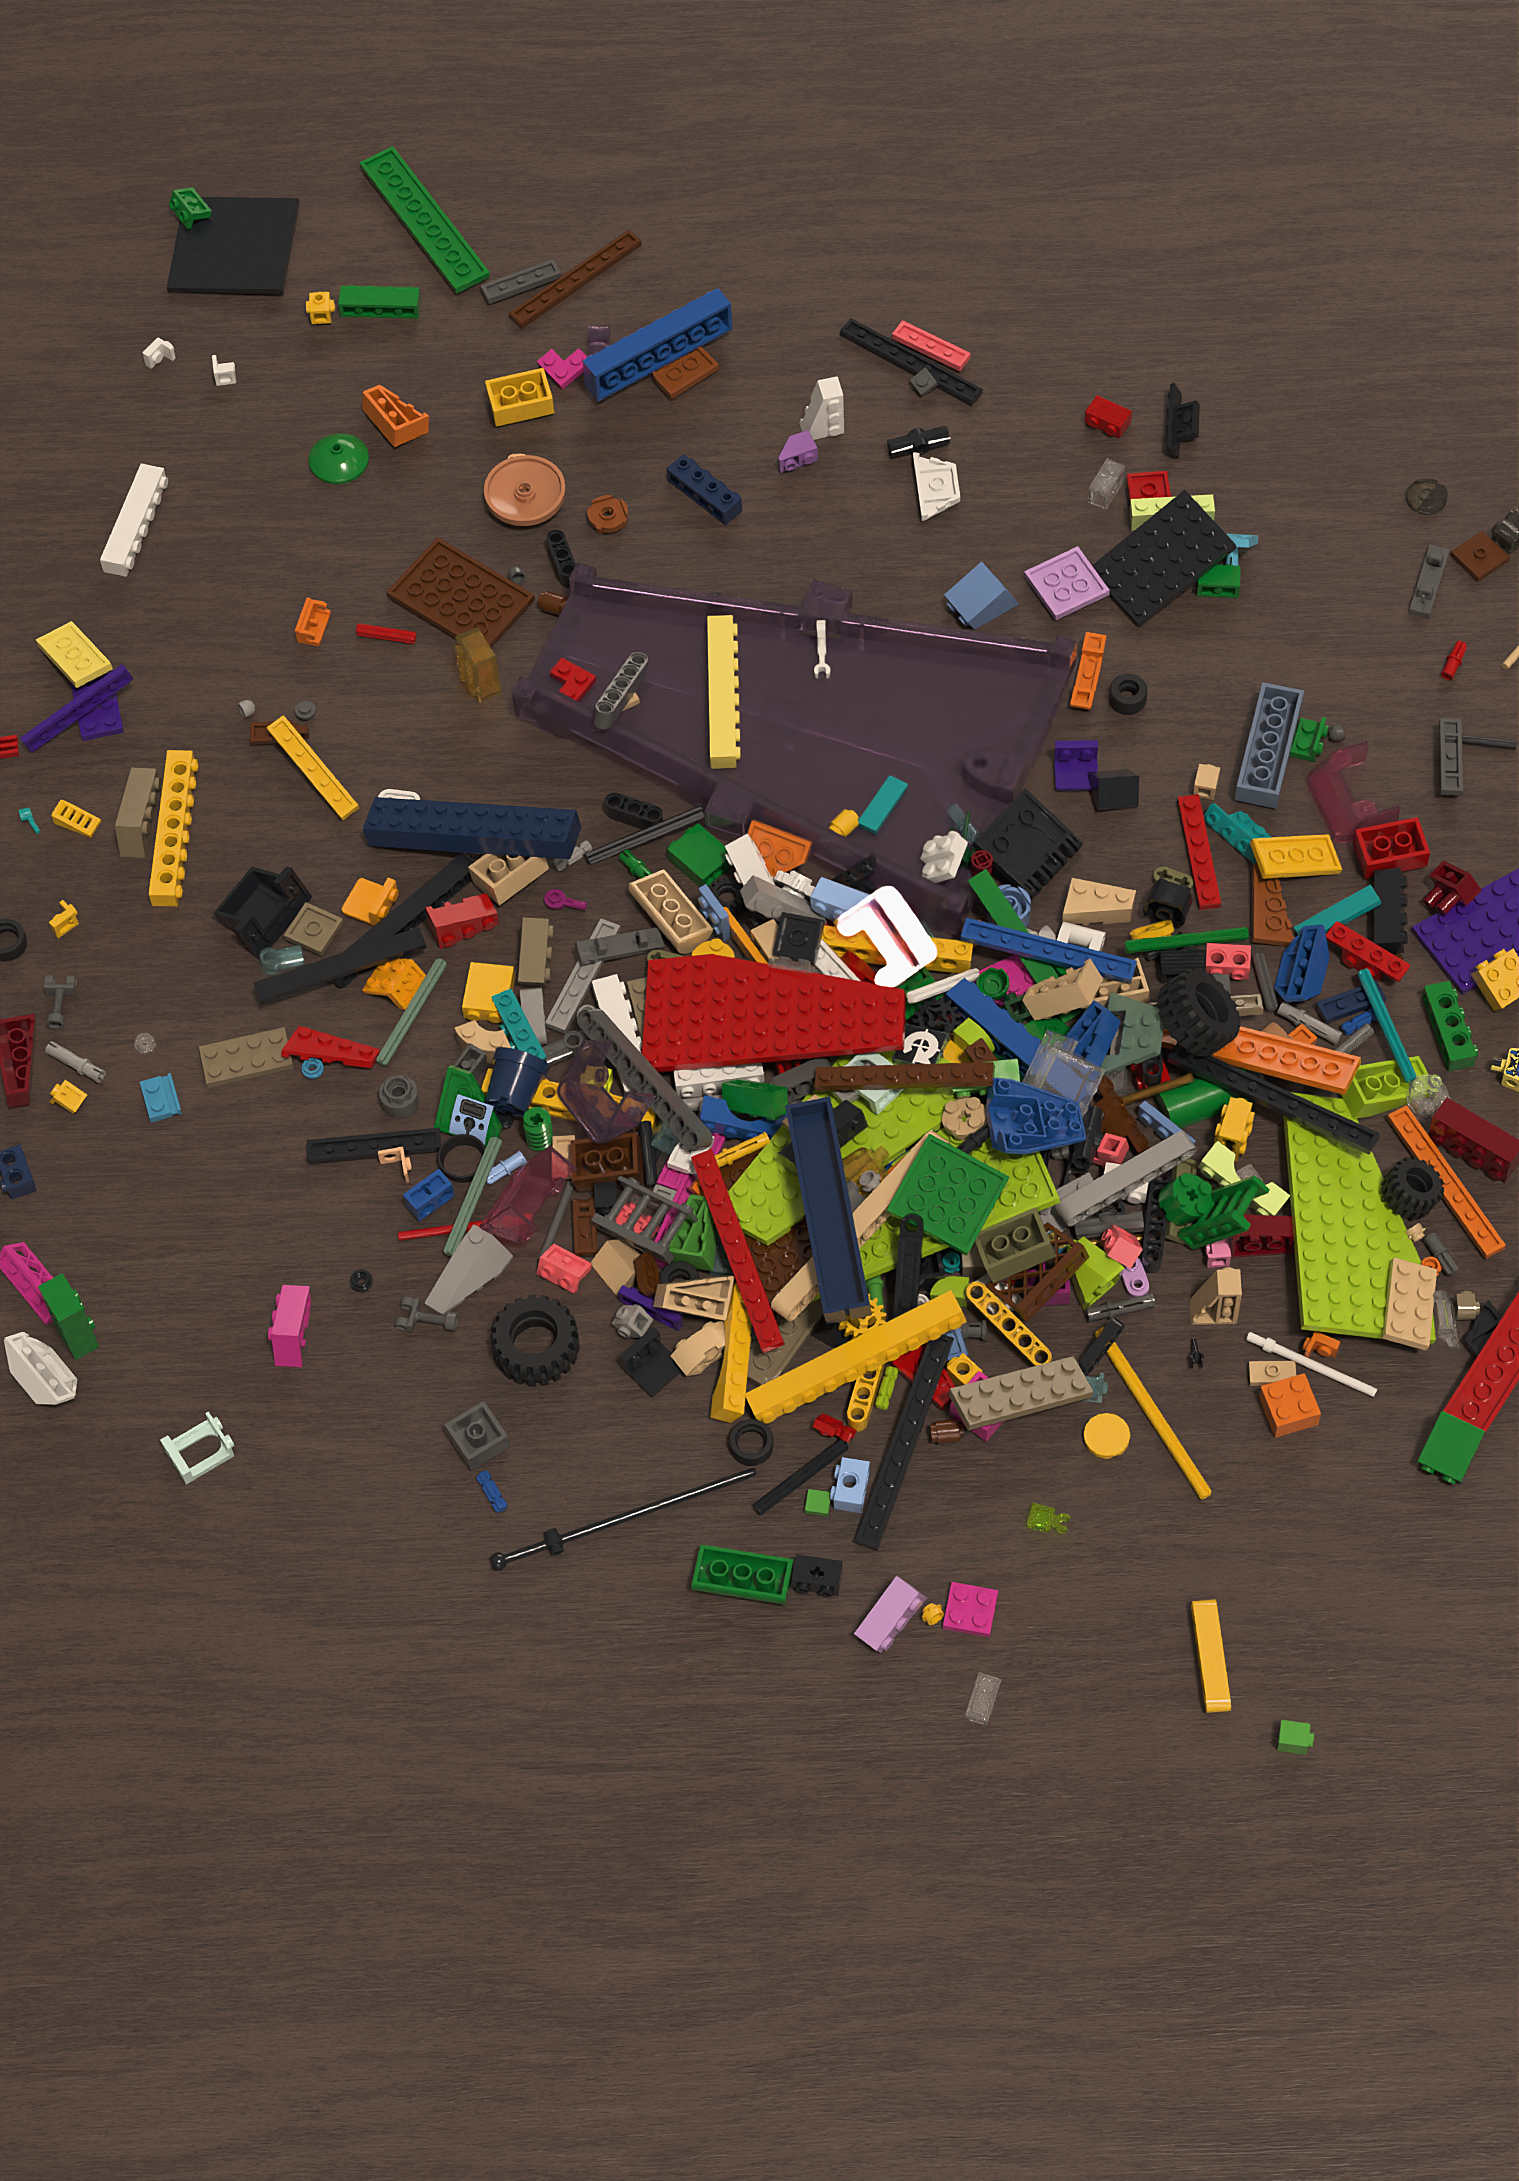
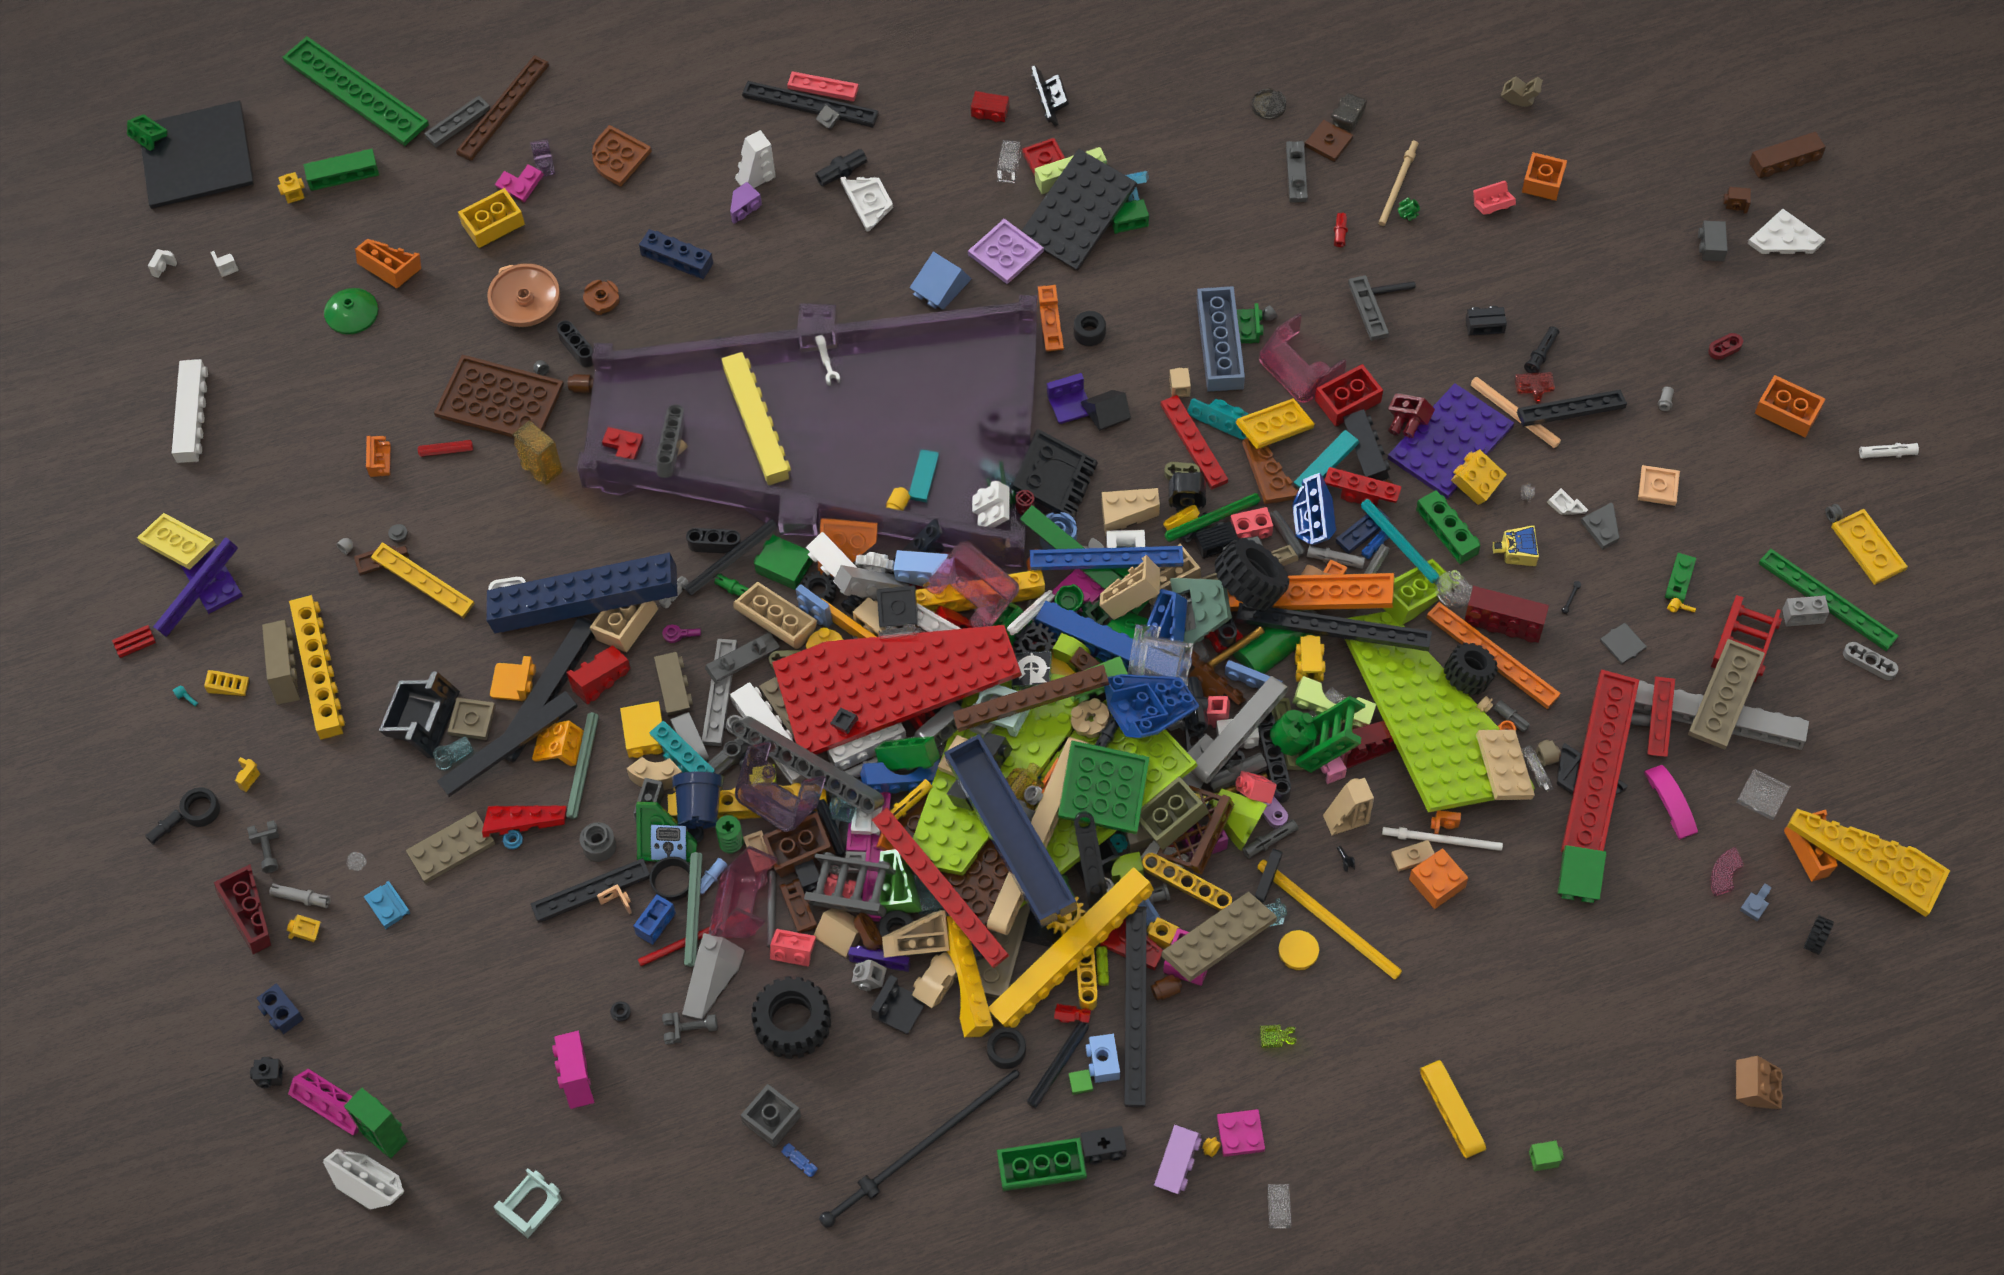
camera: 20 degrees left, 0 degrees up
(657, 344) = (595, 143): blue brick -> none
(698, 1043) = (844, 720): none -> black plate

